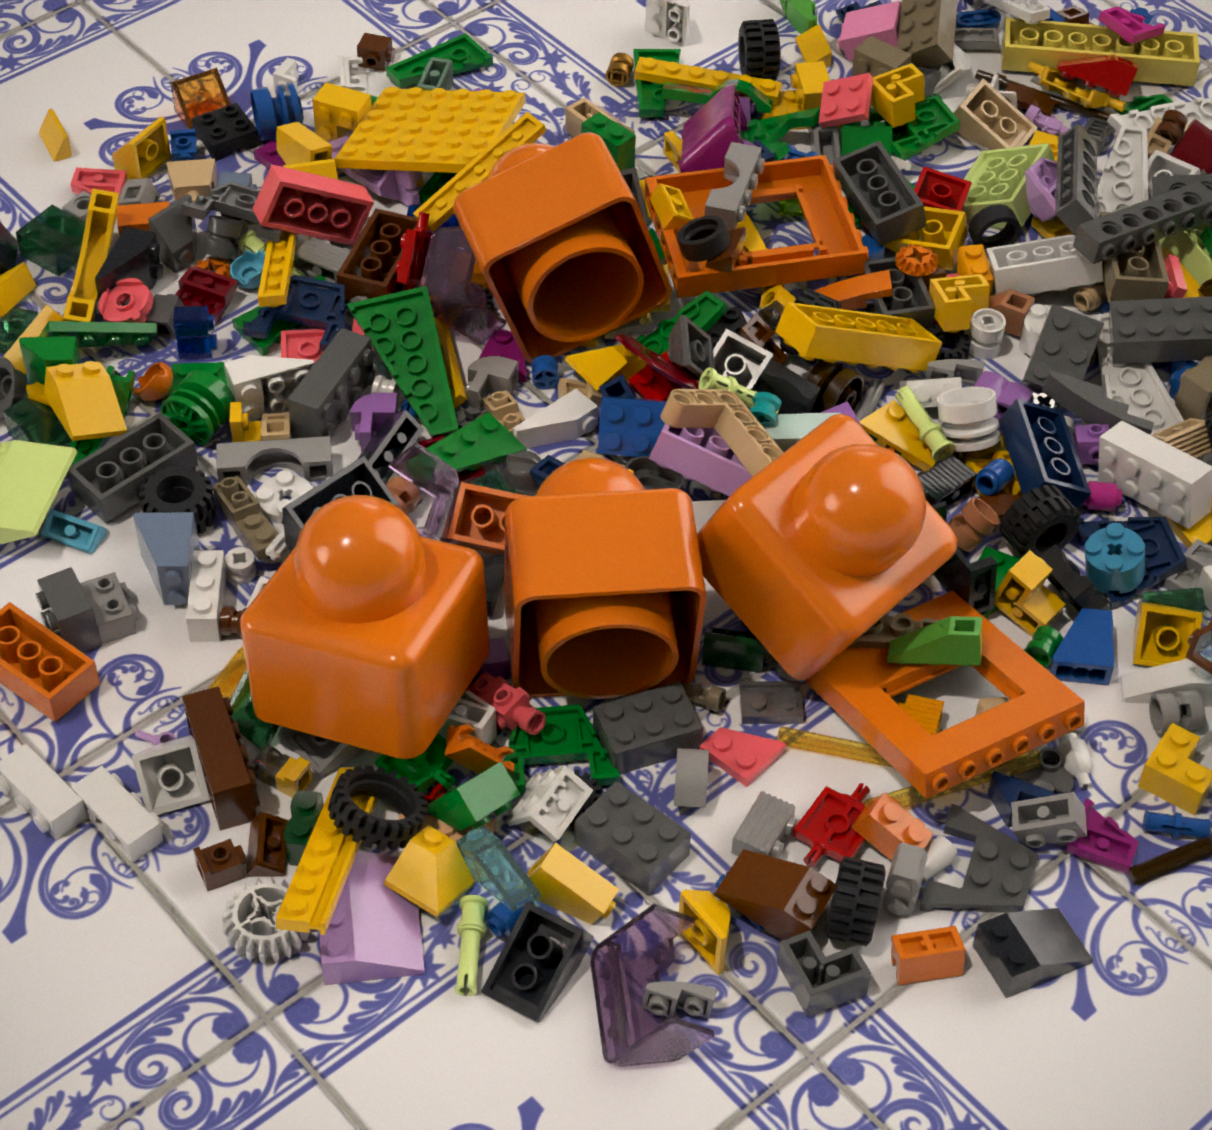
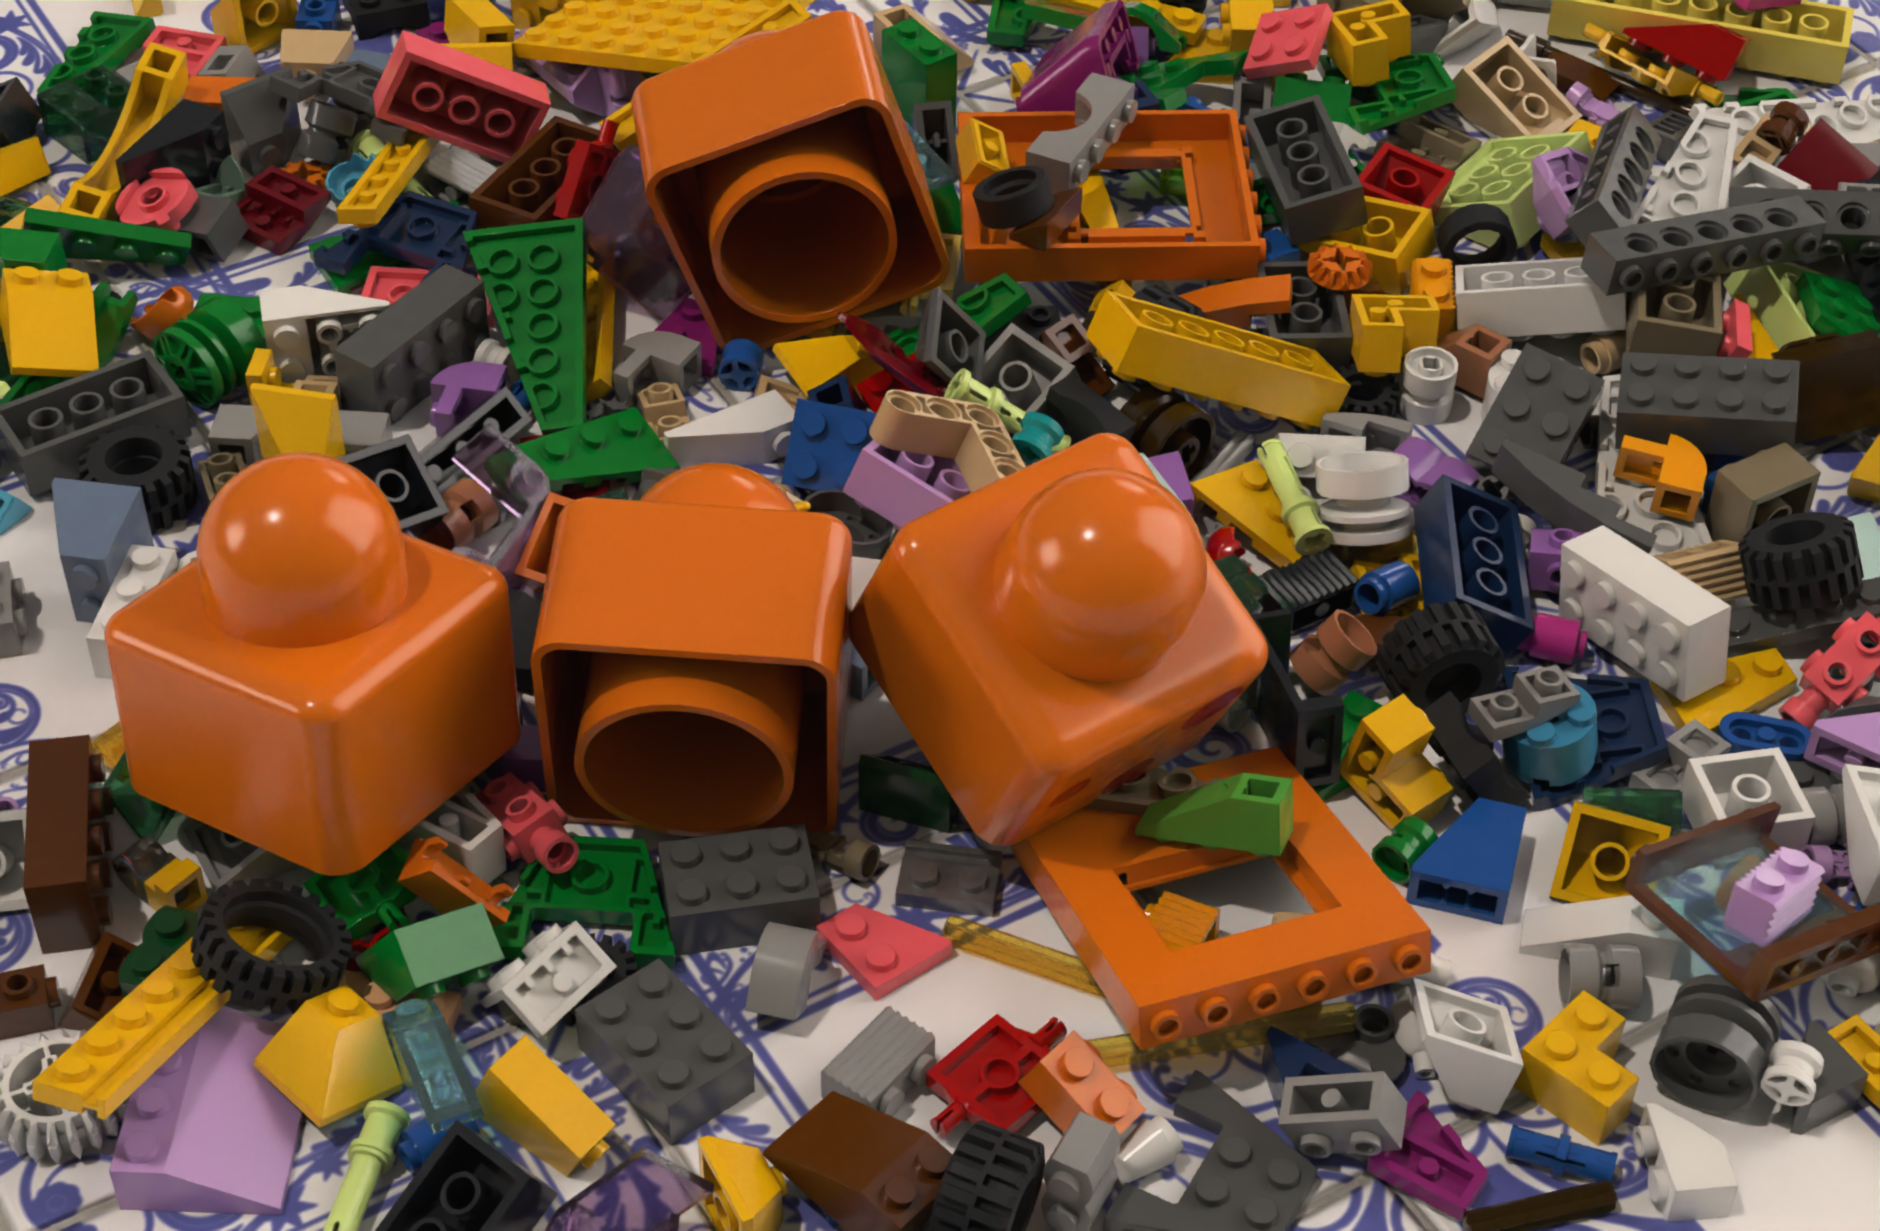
camera: 10 degrees right, 5 degrees down
(40, 189) = (104, 43): none -> green wing
(164, 282) = (229, 182): none -> sand green plate
(194, 332) = (241, 251): clear blue brick -> none
(280, 461) = (296, 421): none -> yellow slope
(946, 159) = (1432, 141): none -> dark tan slope
(1105, 544) = (1531, 702): none -> light grey slope
(1112, 765) = (1468, 1045): none -> white slope
(1153, 375) = (1673, 469): none -> light orange brick

